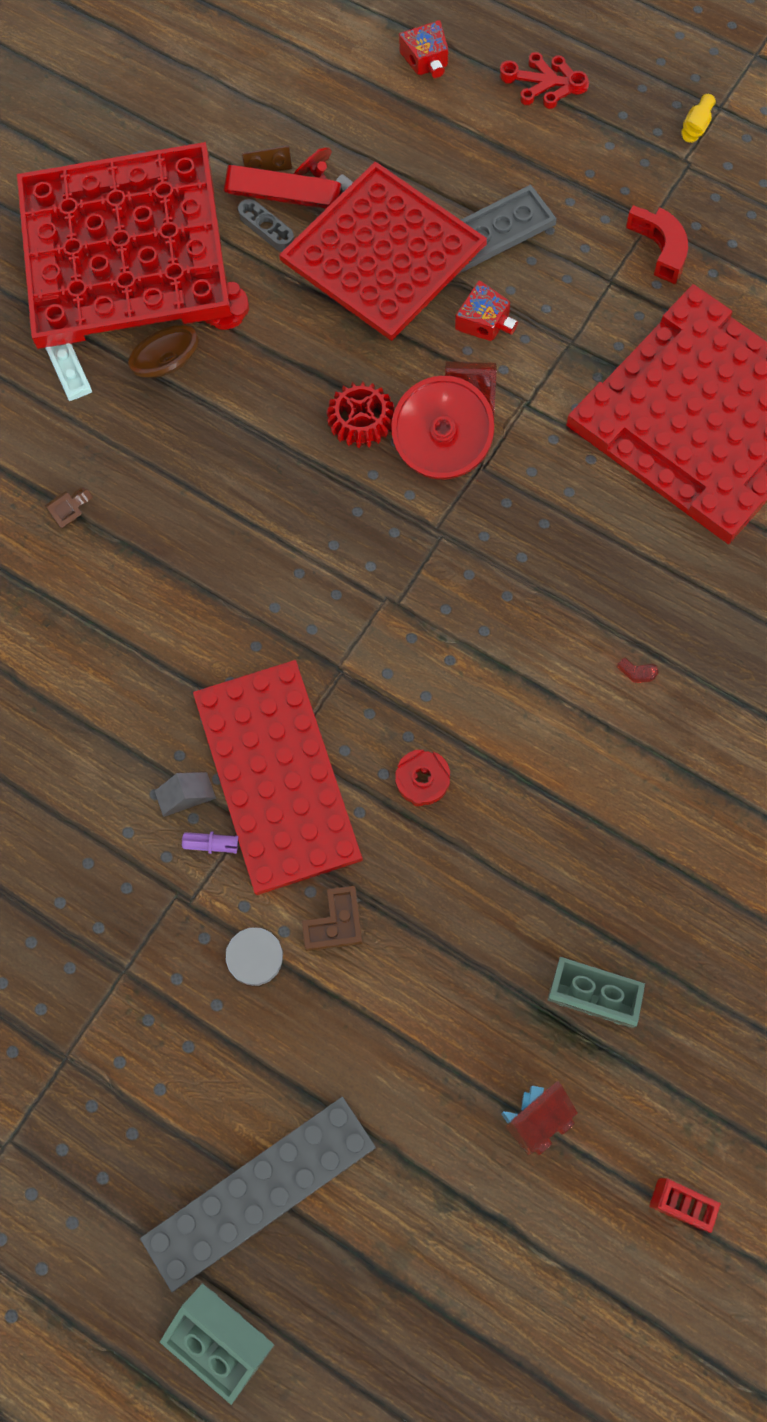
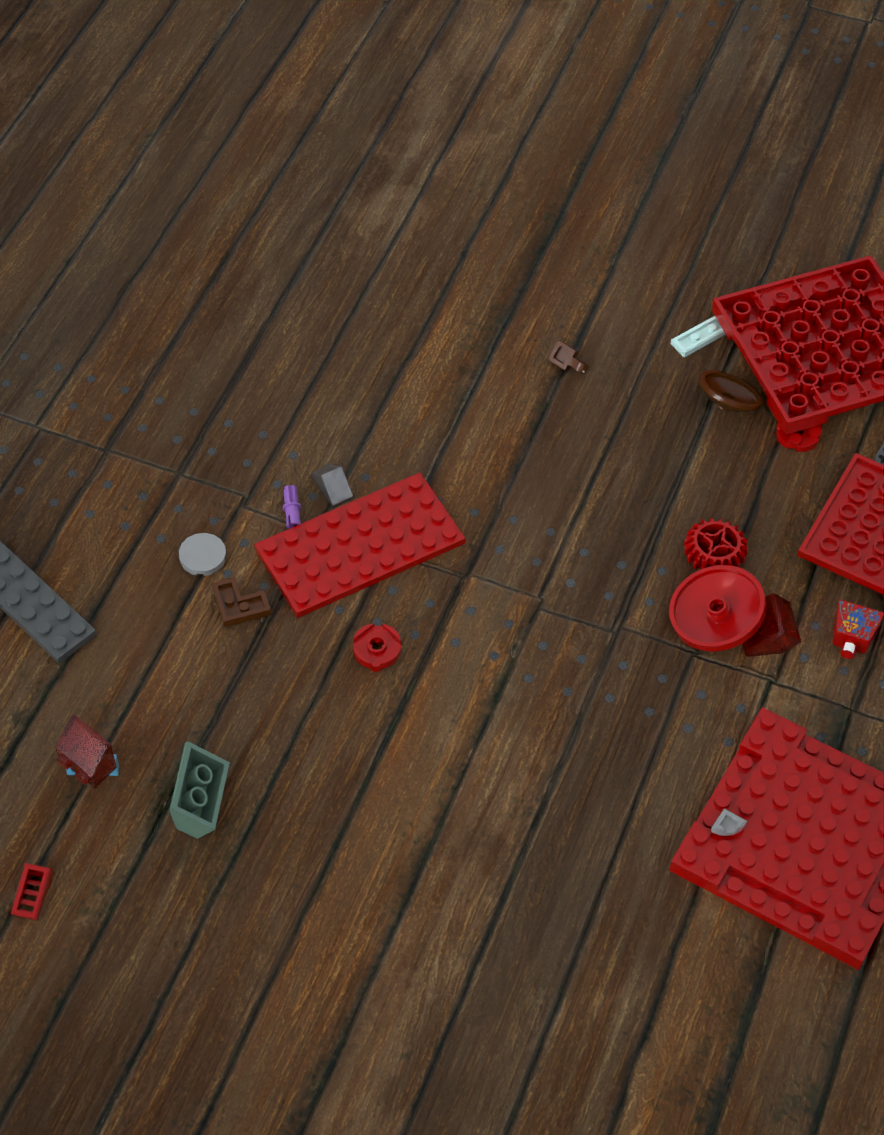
camera: 75 degrees right, 15 degrees down
(638, 674) = (512, 803): clear red arm -> none
(703, 473) = (728, 824): none -> light grey tile

